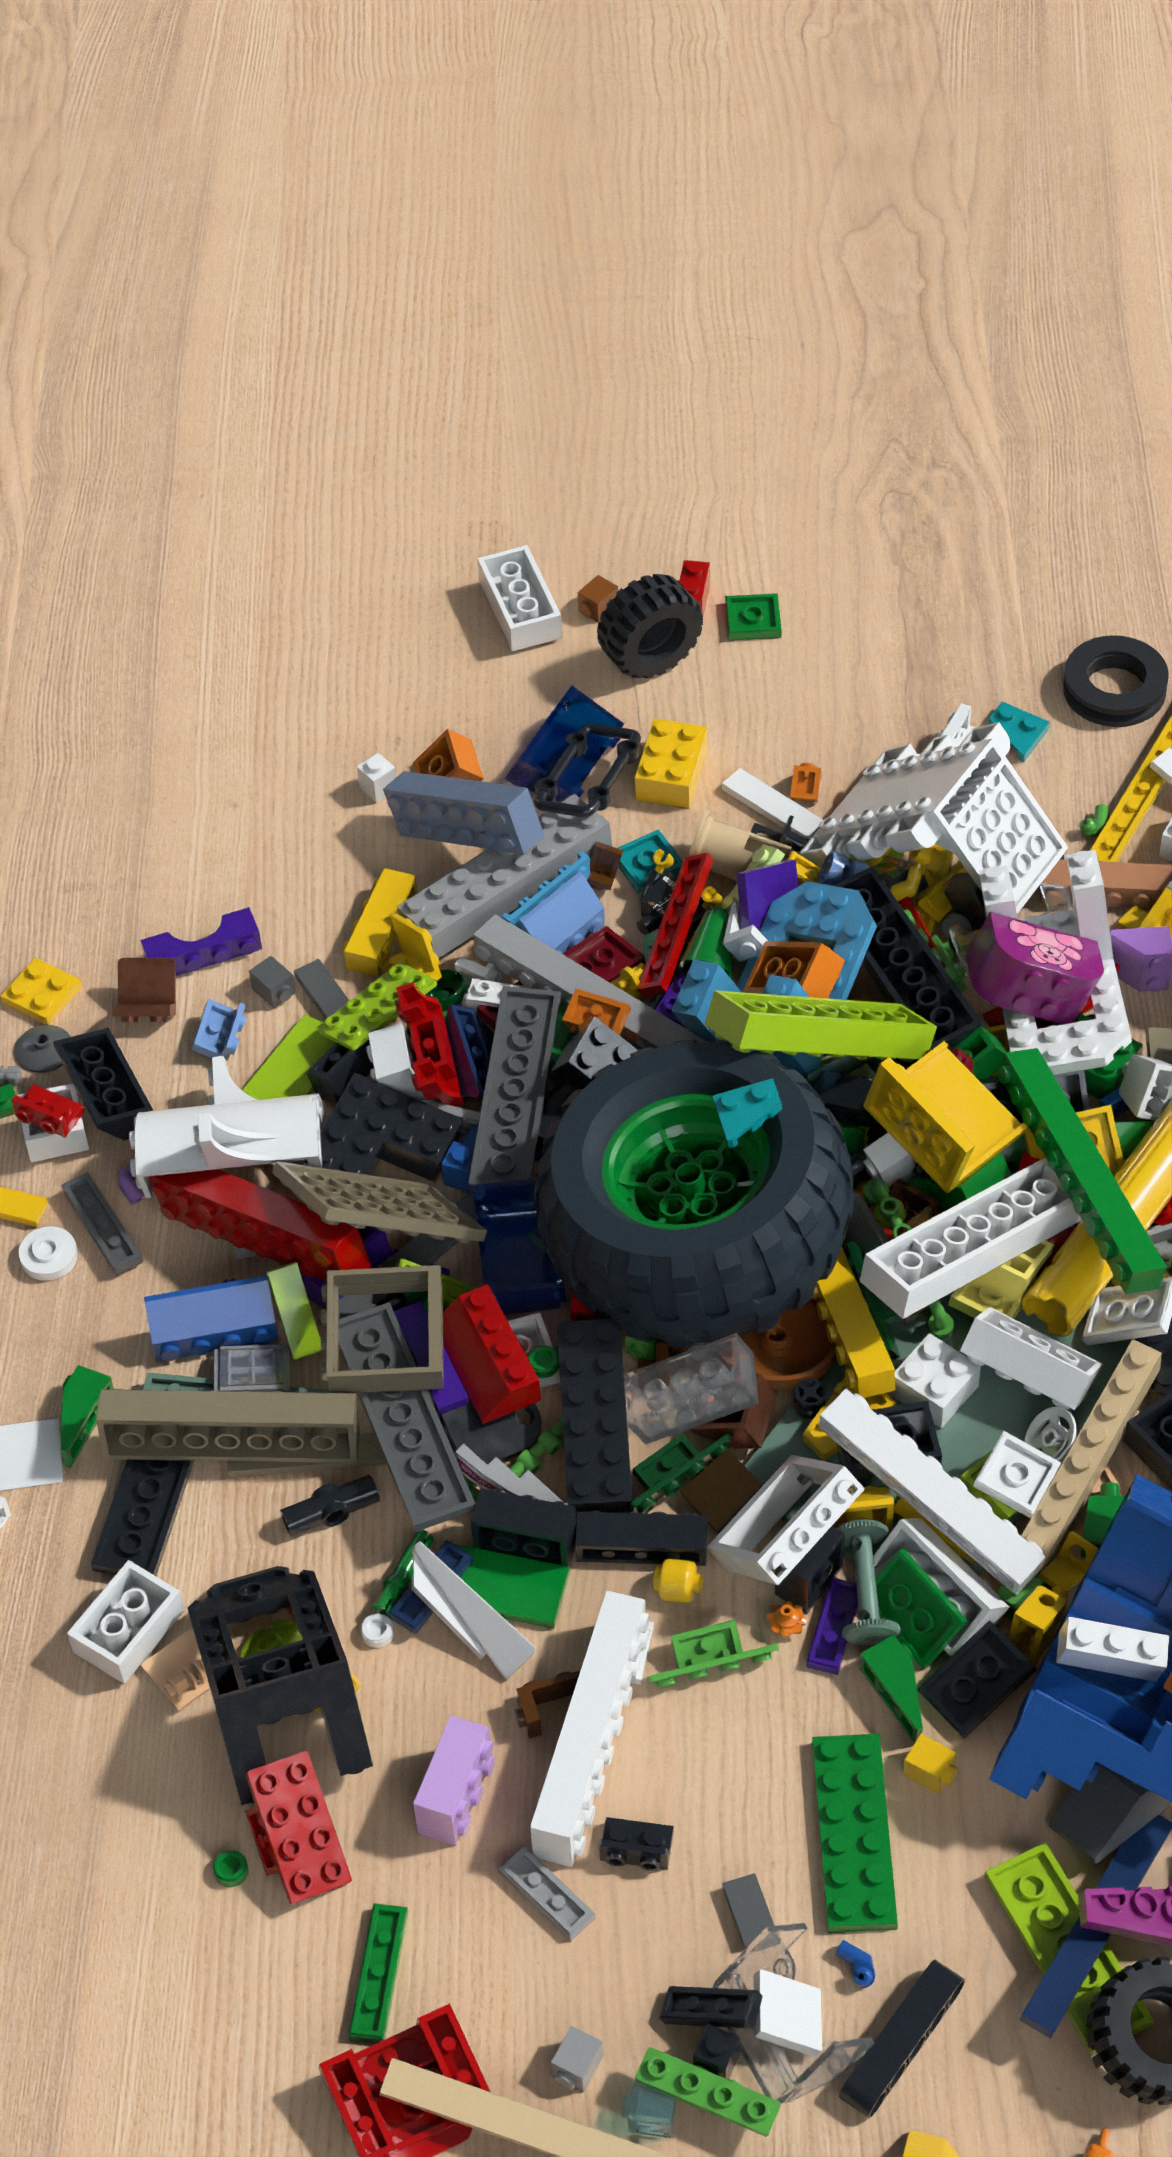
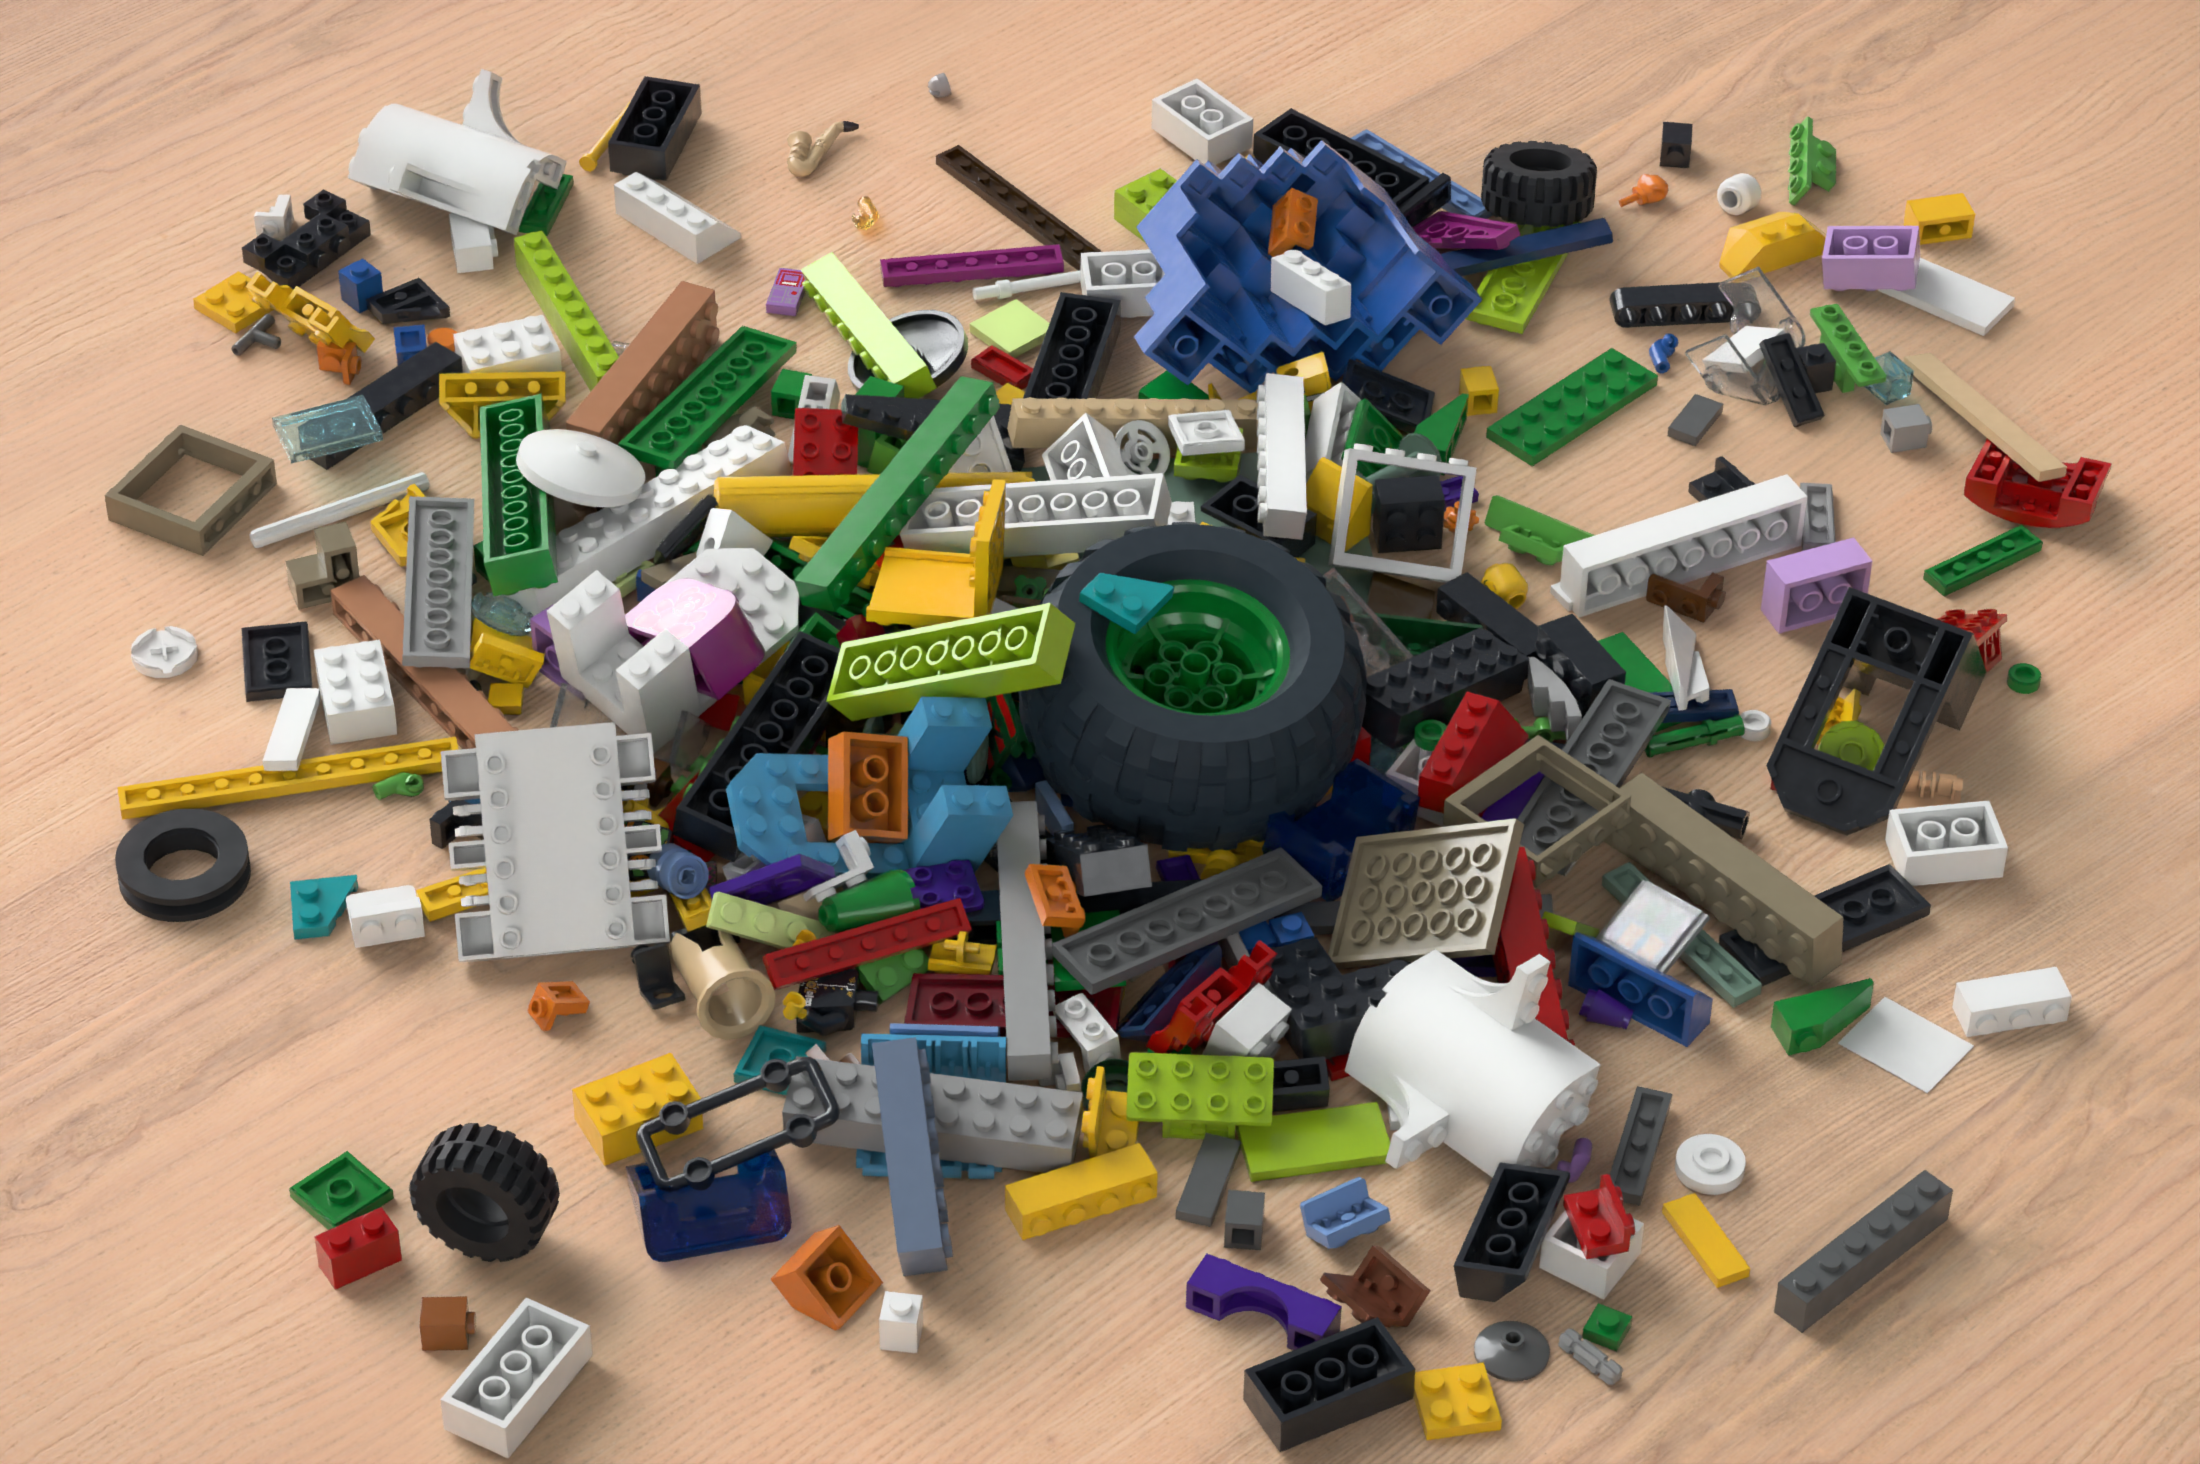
camera: 135 degrees left, 10 degrees down
(108, 924) = (1328, 1384): none -> black brick
(771, 803) = (608, 1016): white tile -> none

